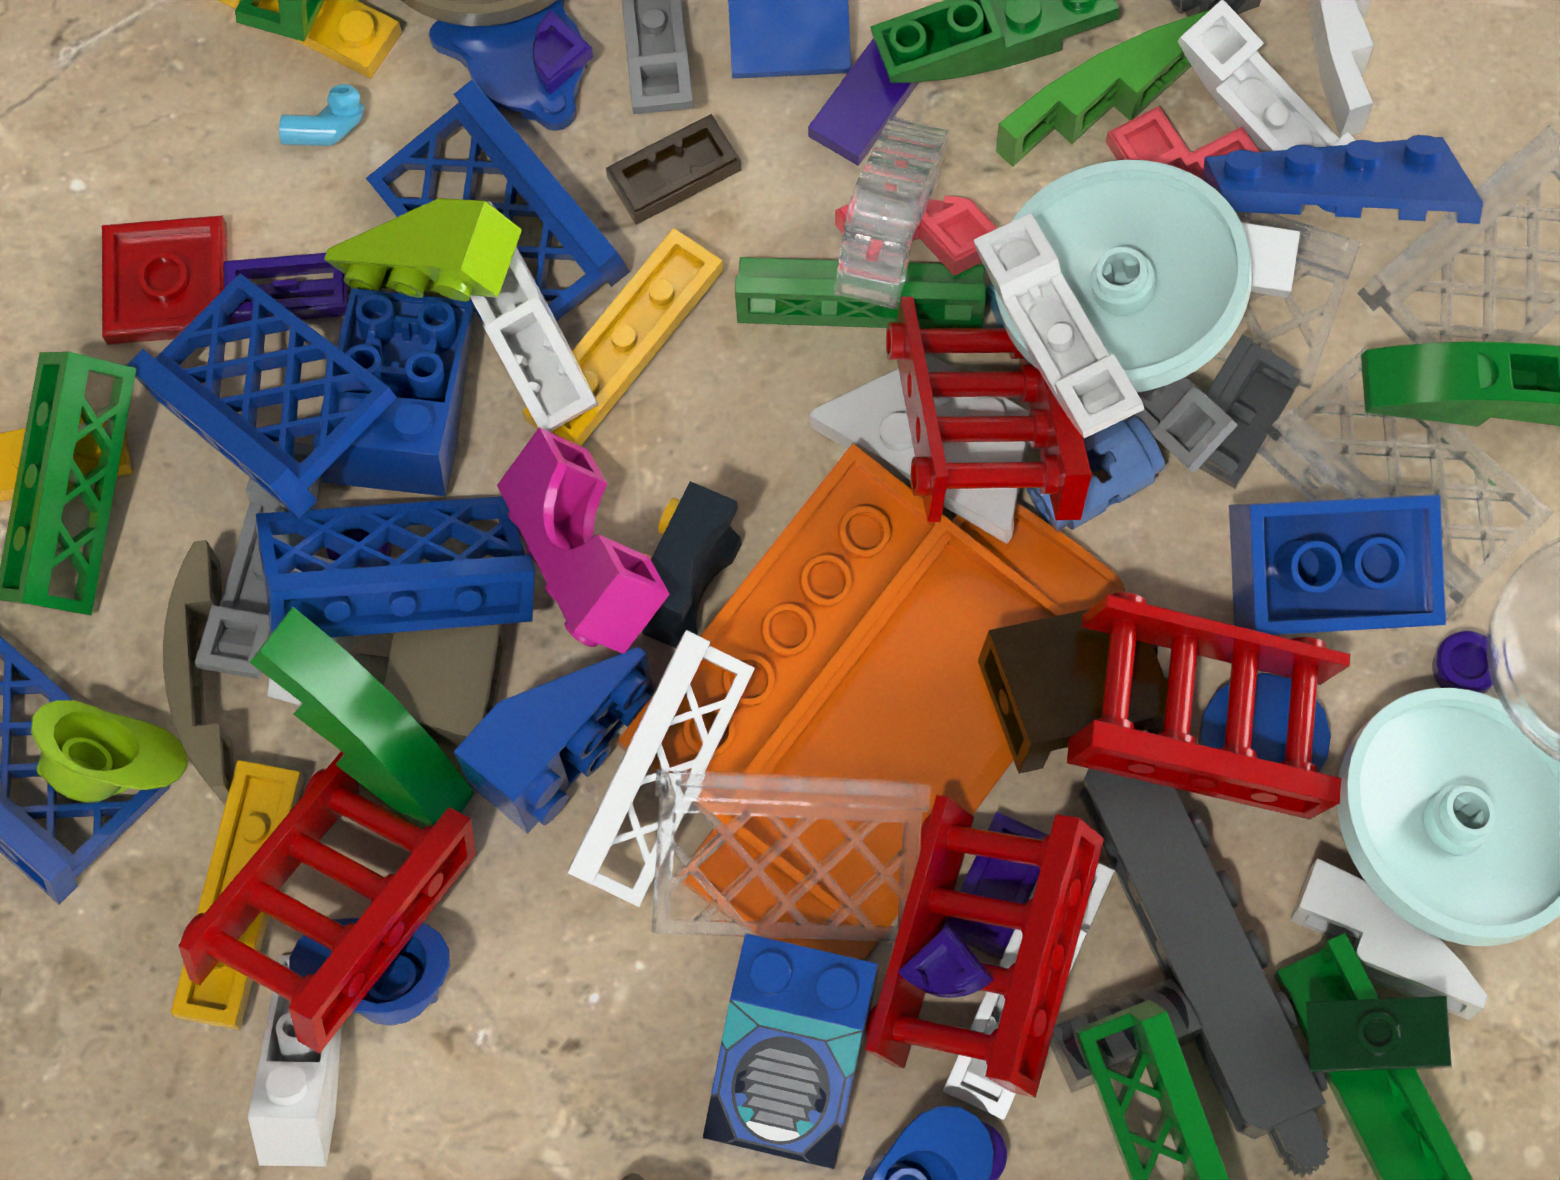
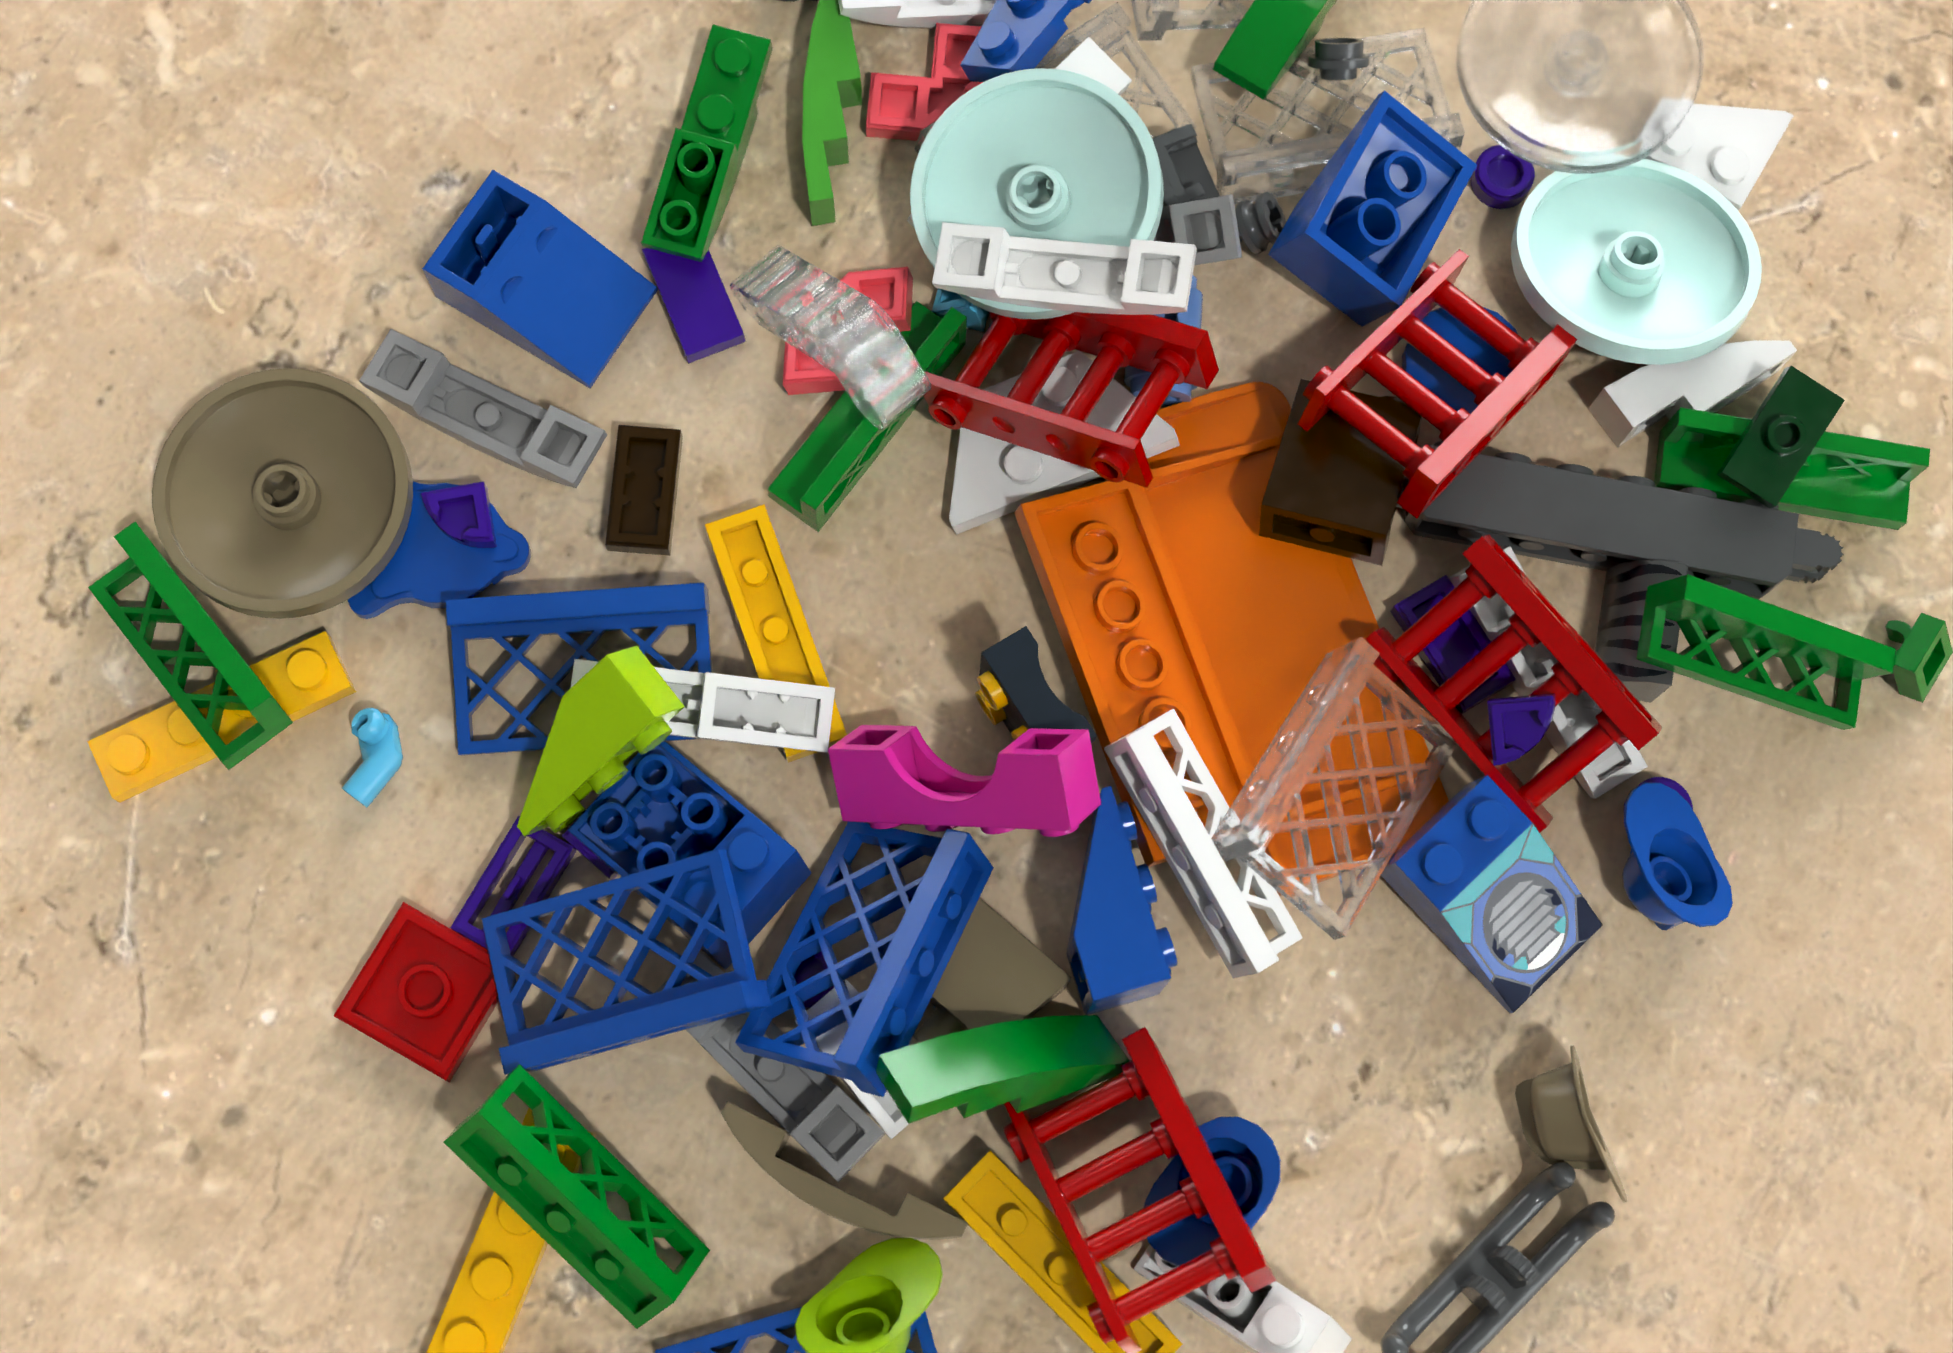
camera: 65 degrees left, 5 degrees up
(1260, 482) = (1260, 221): none -> dark grey bush
(1457, 451) = (1338, 58): none -> dark grey plate

